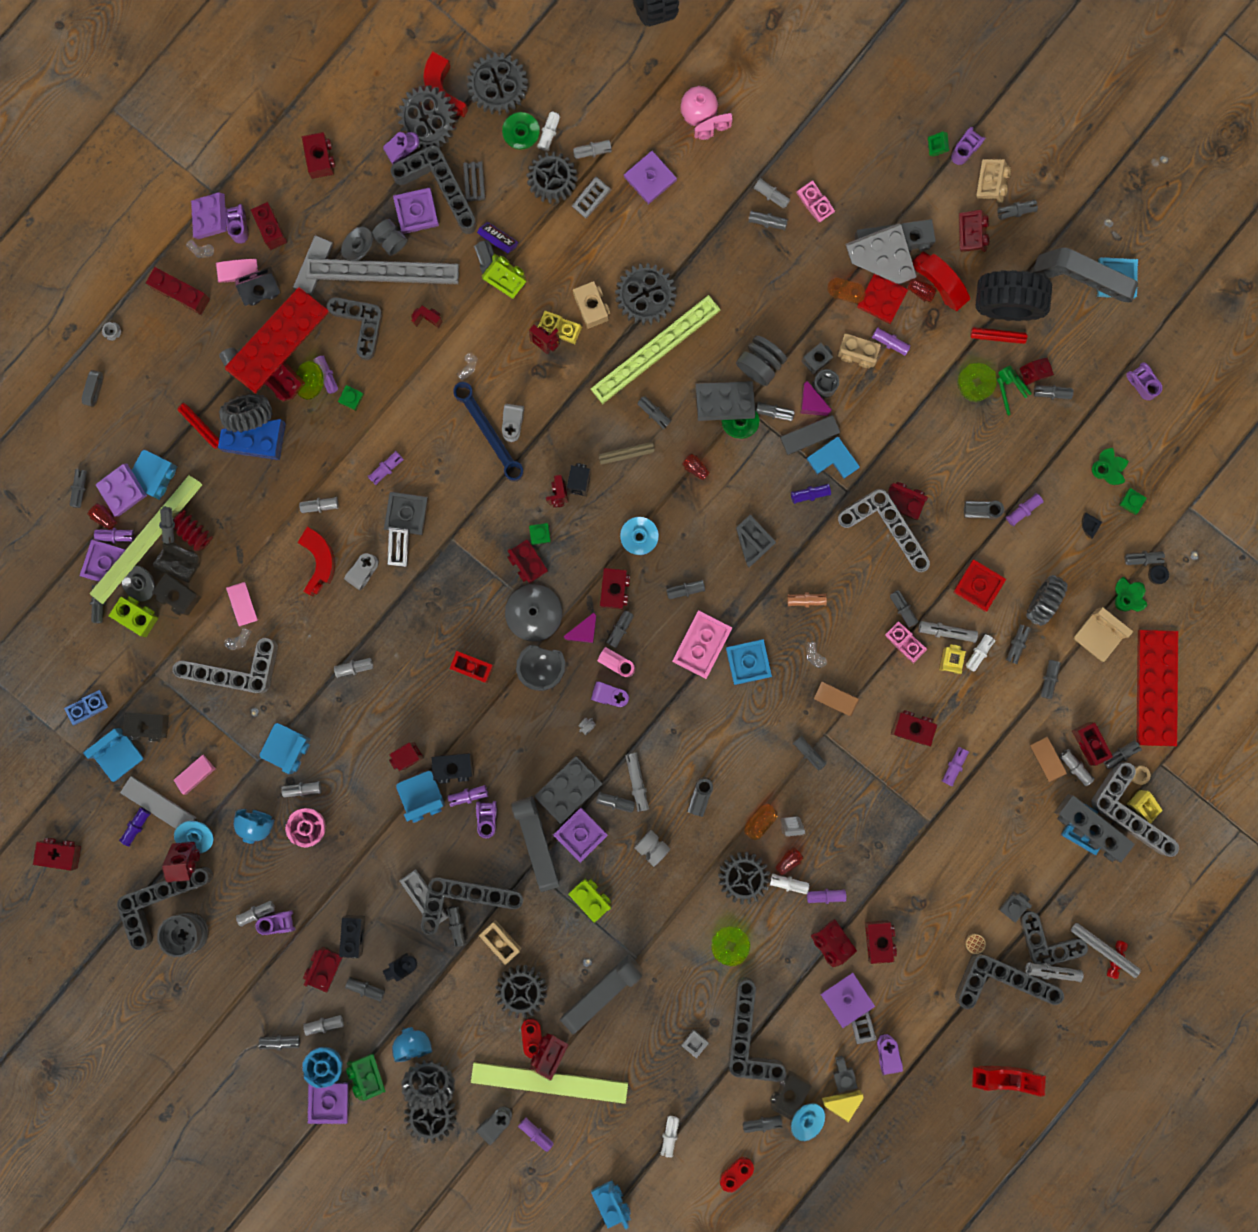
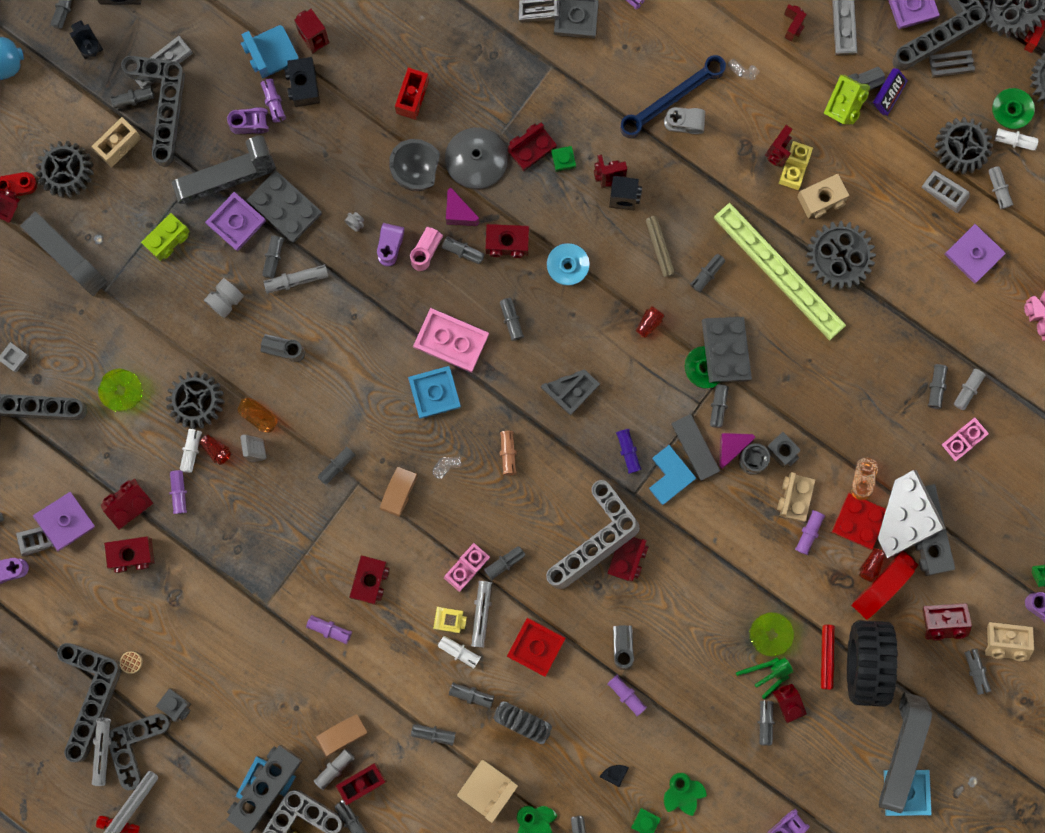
camera: 85 degrees right, 5 degrees down
(763, 358) = (774, 384): dark grey wheel -> none

